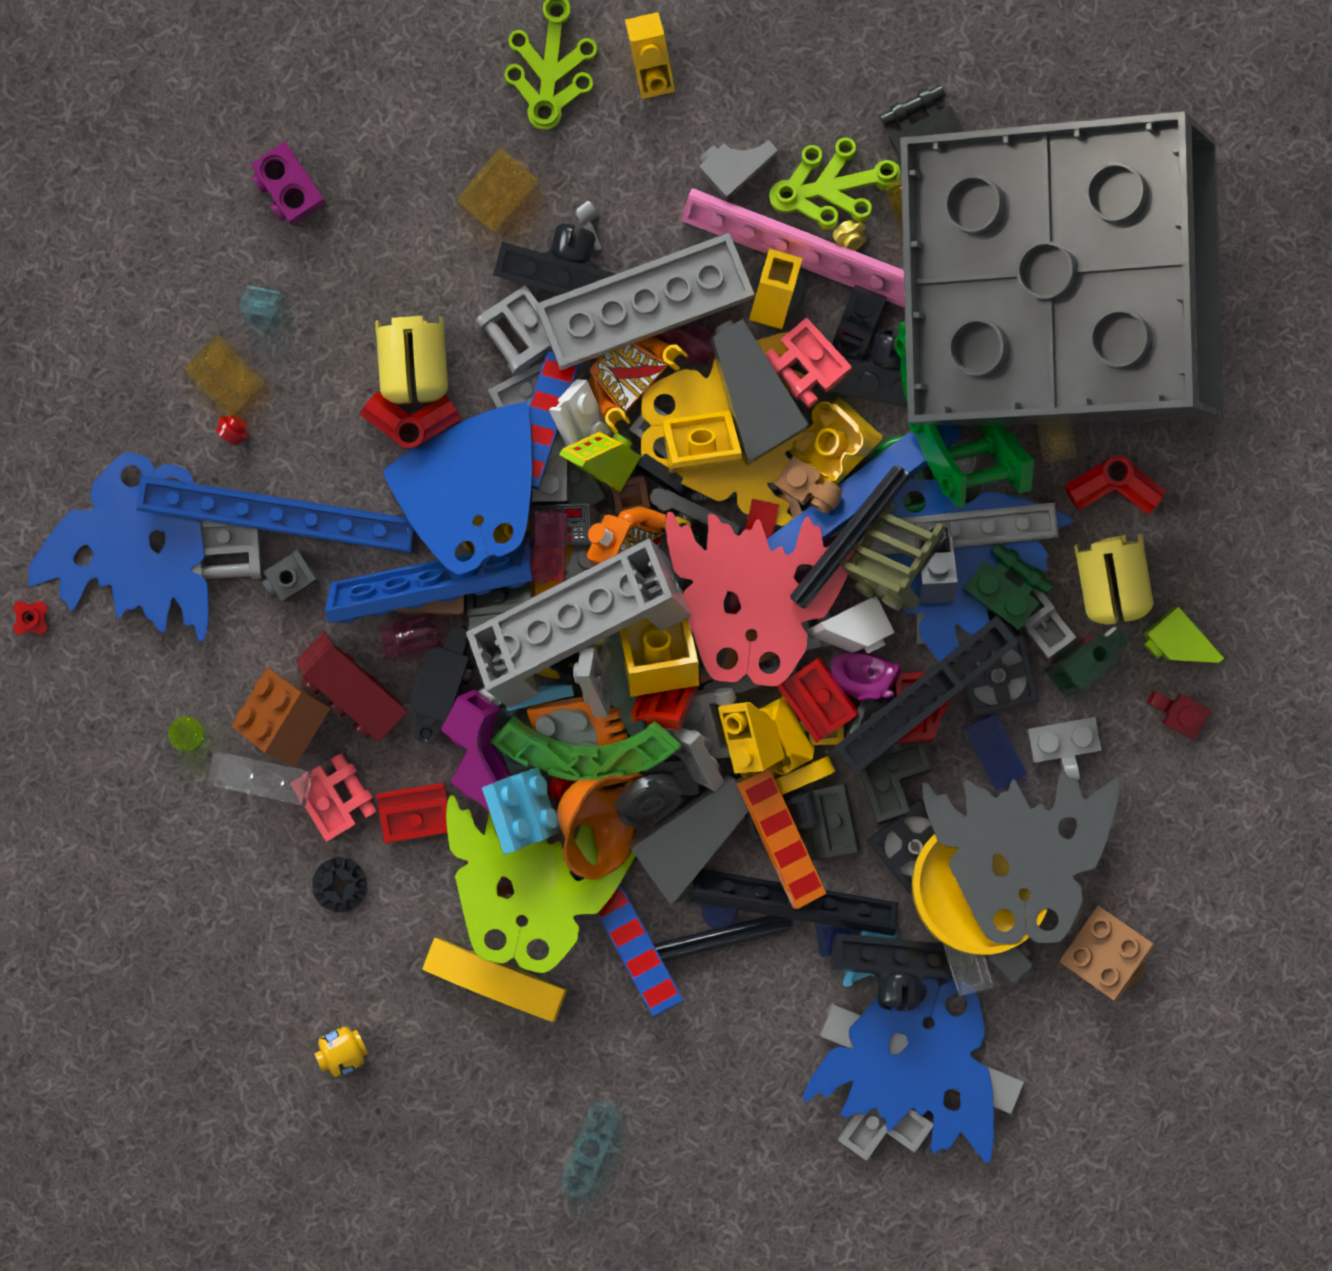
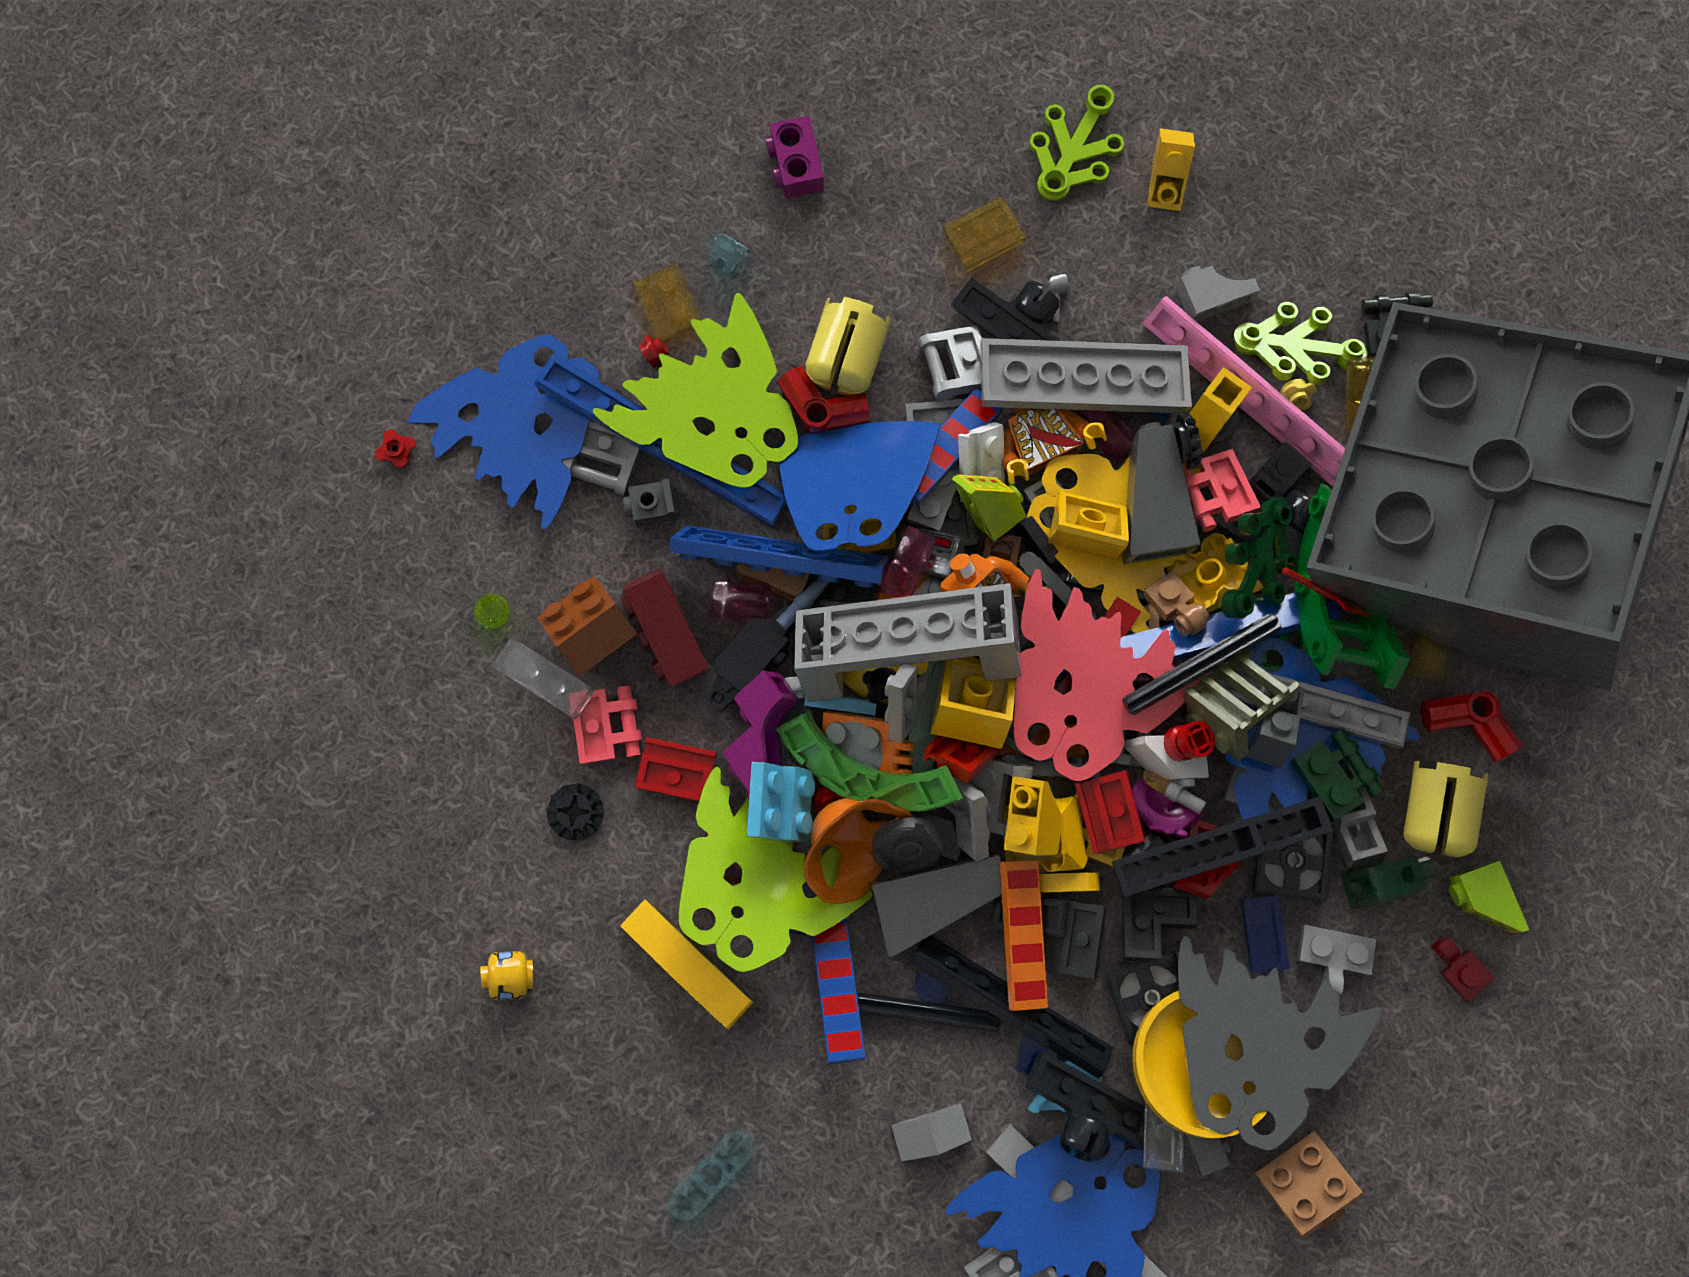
camera: 15 degrees right, 10 degrees down
(308, 450) = (717, 393): none -> lime piece
(467, 621) = (801, 602): none -> sand blue piece
(762, 331) = (1188, 440): none -> black gear
(767, 1038) = (931, 1133): none -> light grey slope
(857, 617) = (1189, 741): none -> red wheel
(868, 372) = (1275, 517): none -> dark green plant
(868, 659) = (1174, 792): none -> light grey piece
(959, 432) = (1344, 603): none -> red piece

